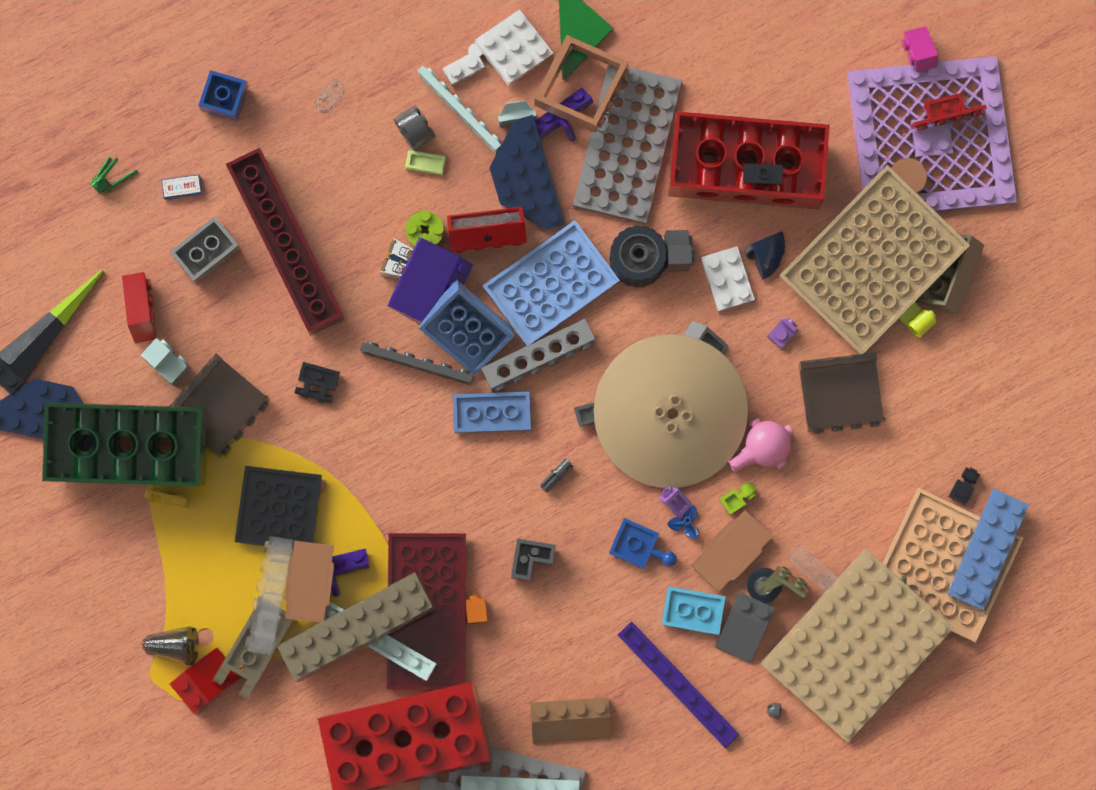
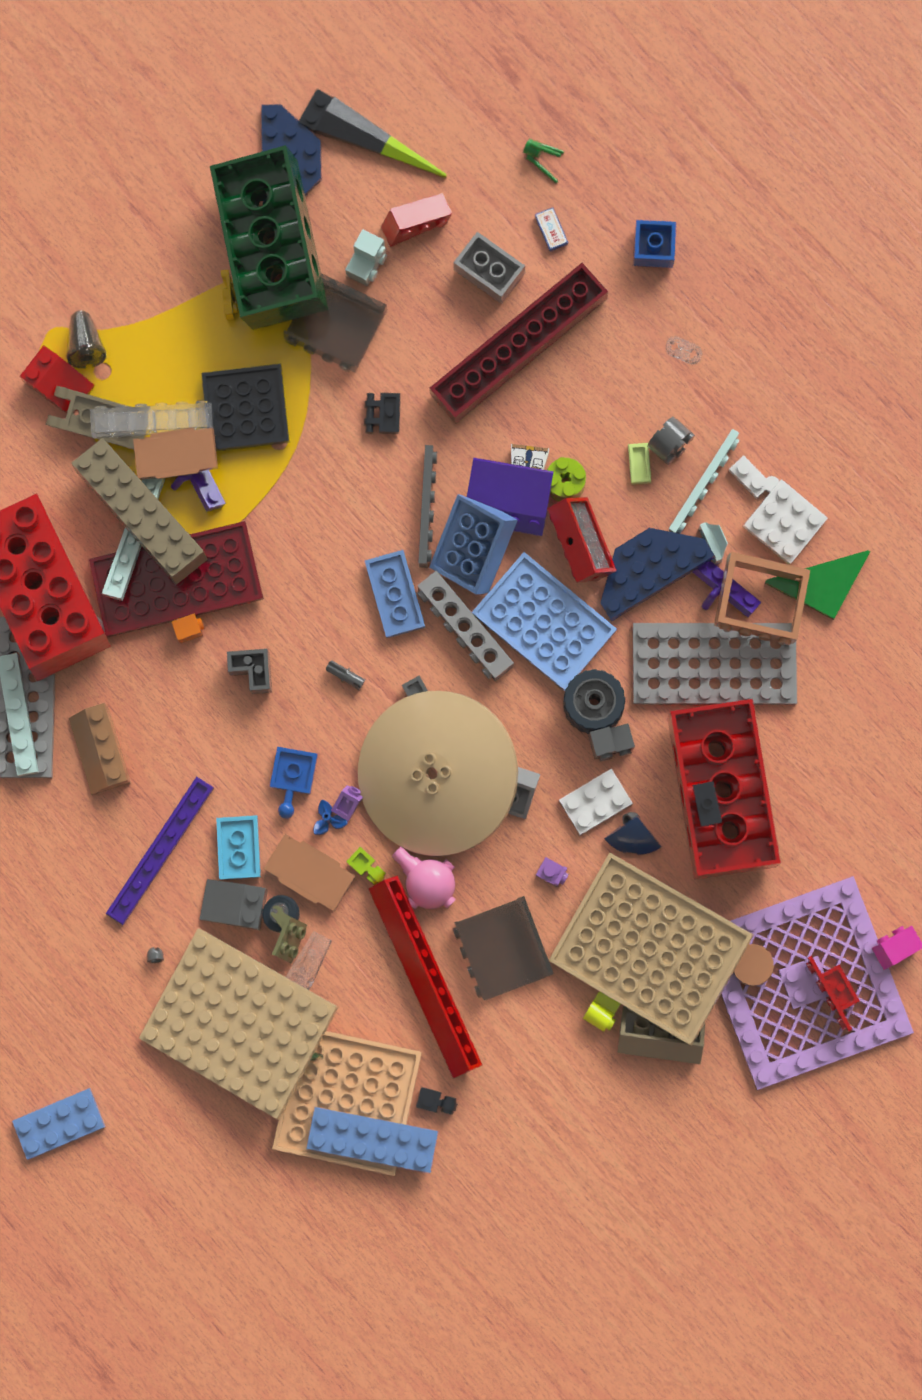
camera: 85 degrees right, 0 degrees up
(851, 467) = (425, 976): none -> red brick

